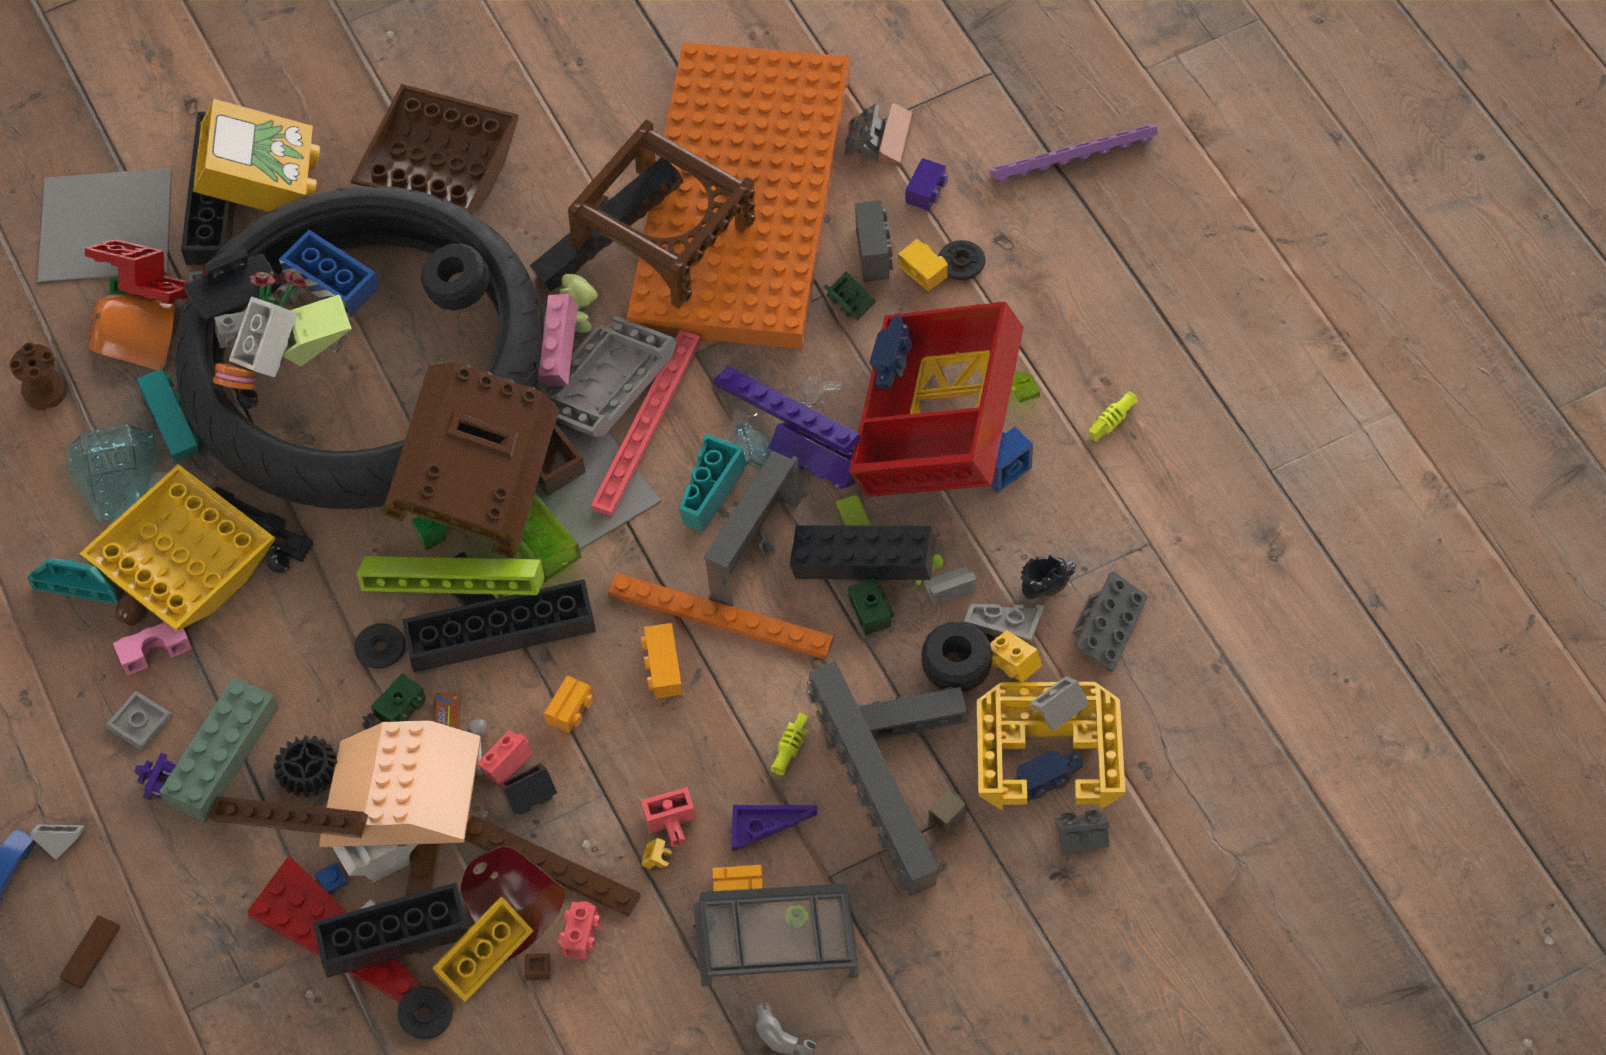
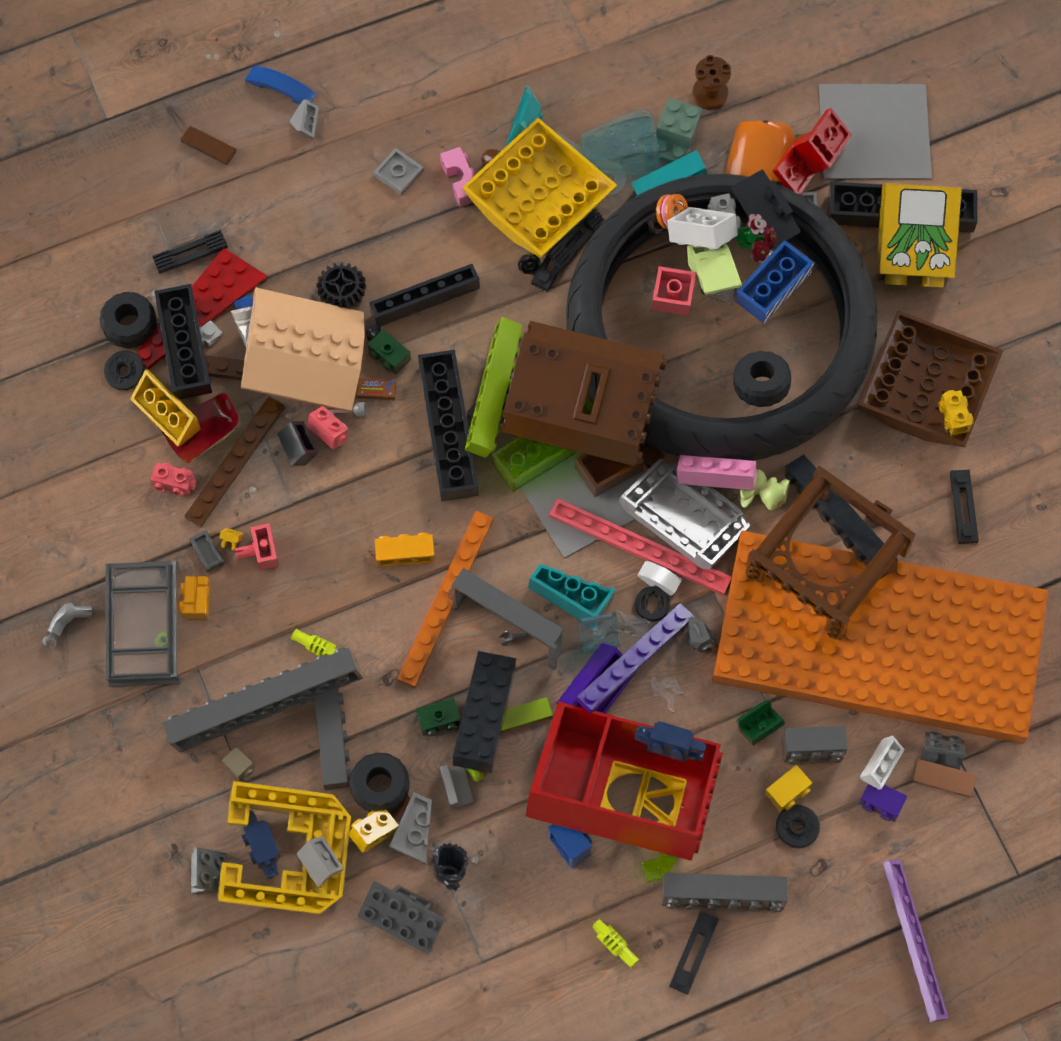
camera: 90 degrees right, 10 degrees up
(98, 408) = (677, 129): none -> sand green bracket
(153, 786) = (352, 186): dark purple hips -> none
(219, 749) = (362, 225): sand green brick -> none
(238, 924) = (165, 262): none -> black container
(289, 816) = (282, 267): reddish brown plate -> none
(322, 667) = (424, 295): none -> black brick
(340, 370) = (673, 291): none -> coral brick
(360, 1031) = (123, 305): none -> black tyre
(379, 658) = (441, 329): black wheel -> none
(481, 118) = (956, 414): none -> yellow brick
(537, 966) = (151, 450): reddish brown tile -> none
(552, 129) = (966, 532): none -> black container
(568, 704) = (372, 477): light orange brick -> none
(673, 884) = (206, 551): none -> dark grey tile
(682, 400) = (658, 575): none -> white slope
(713, 397) = (644, 613): none -> black piece
(753, 353) = (701, 636): none -> dark grey hand
(757, 822) = (249, 616): dark purple wing -> none
(885, 184) = (882, 762): none -> white slope
(1047, 314) = (724, 892): none -> dark grey brick
(1081, 337) = (683, 979): none -> black container

